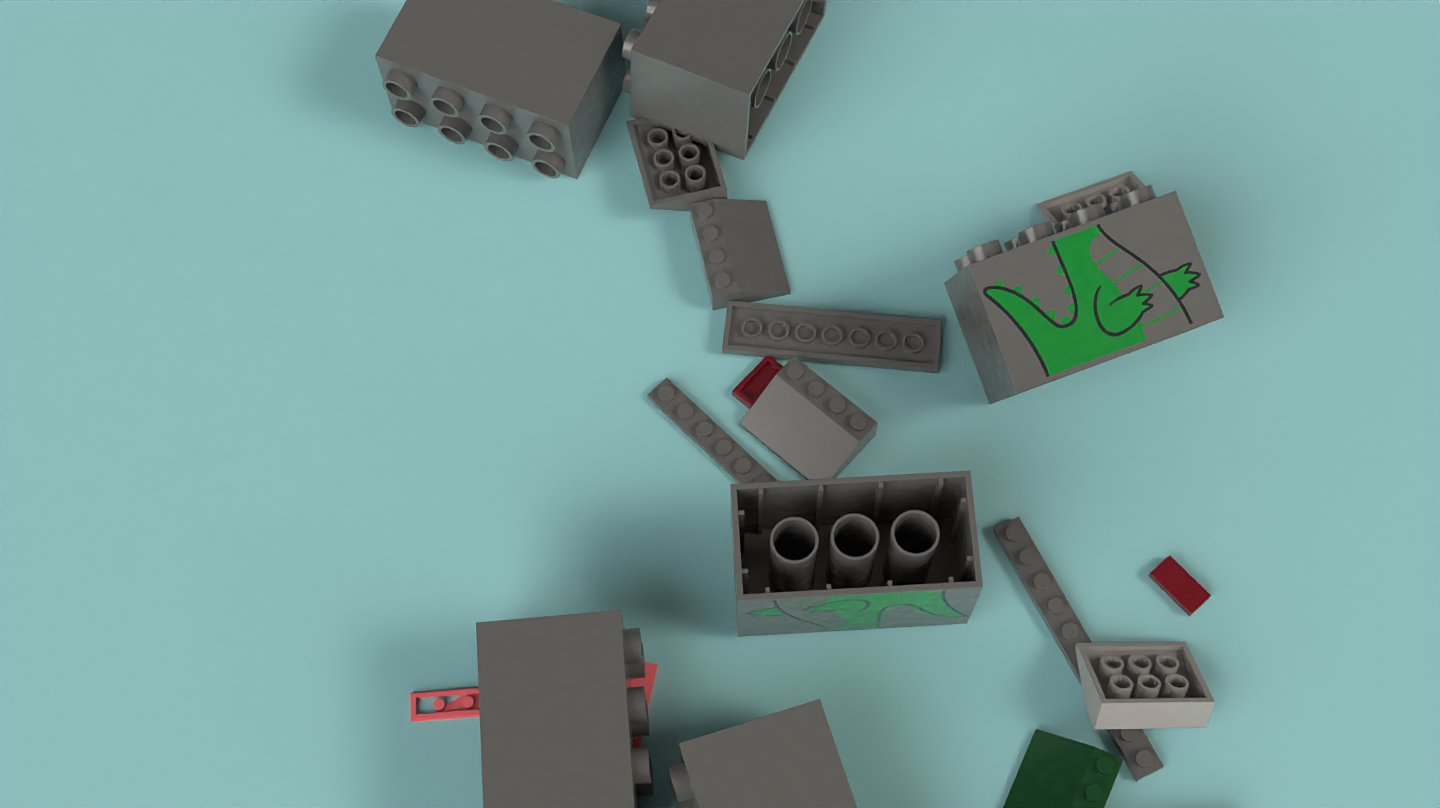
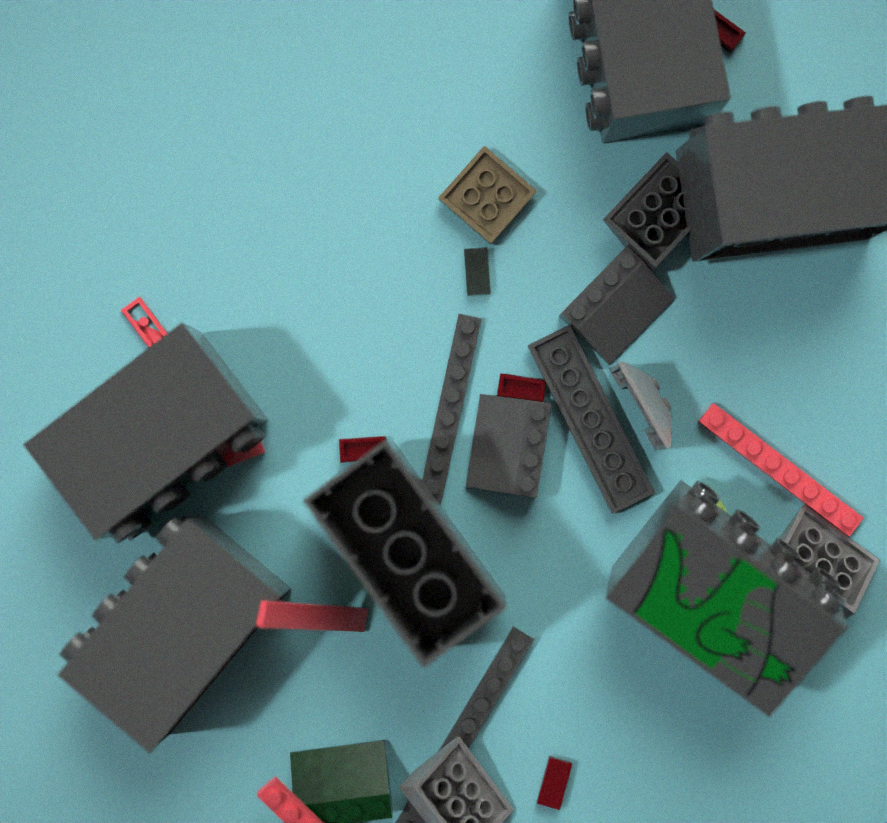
camera: 55 degrees right, 20 degrees up
(552, 301) = (487, 195): none -> dark tan plate
(618, 355) = (477, 271): none -> clear smoke tile
(717, 568) = (355, 448): none -> dark red tile
(860, 696) = (311, 616): none -> coral tile
(886, 273) = (652, 405): none -> light grey slope
(989, 204) = (780, 469): none -> coral plate

